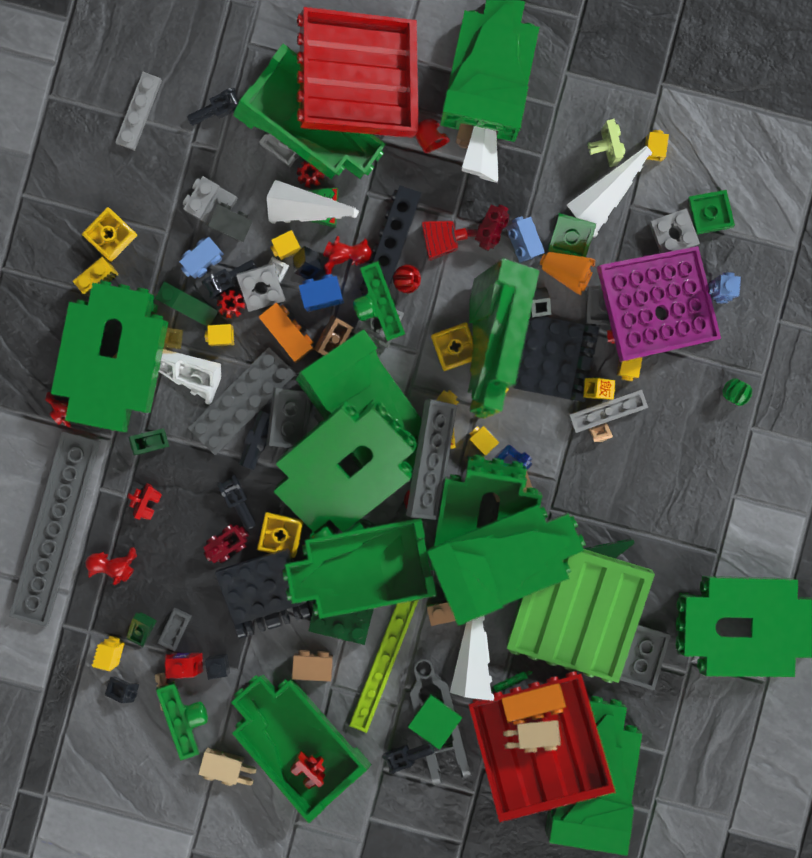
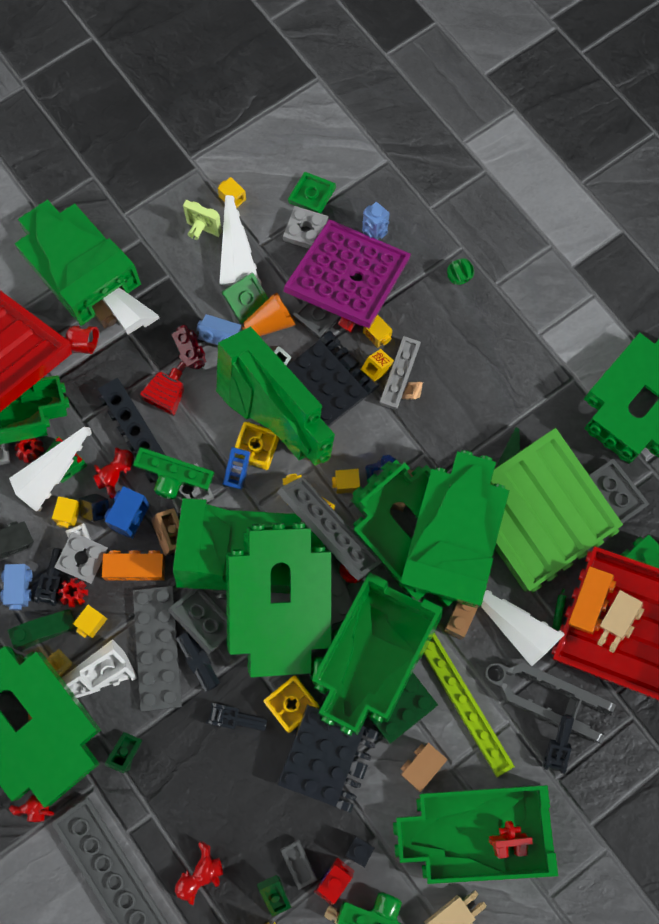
camera: 55 degrees left, 15 degrees down
(141, 509) = (173, 808): red hips -> none
(220, 547) = (261, 765): dark red brick -> none
(407, 279) = (173, 440): red piece -> none
(410, 351) = (231, 482): none -> blue slope
(435, 721) = (547, 697): green tile -> none

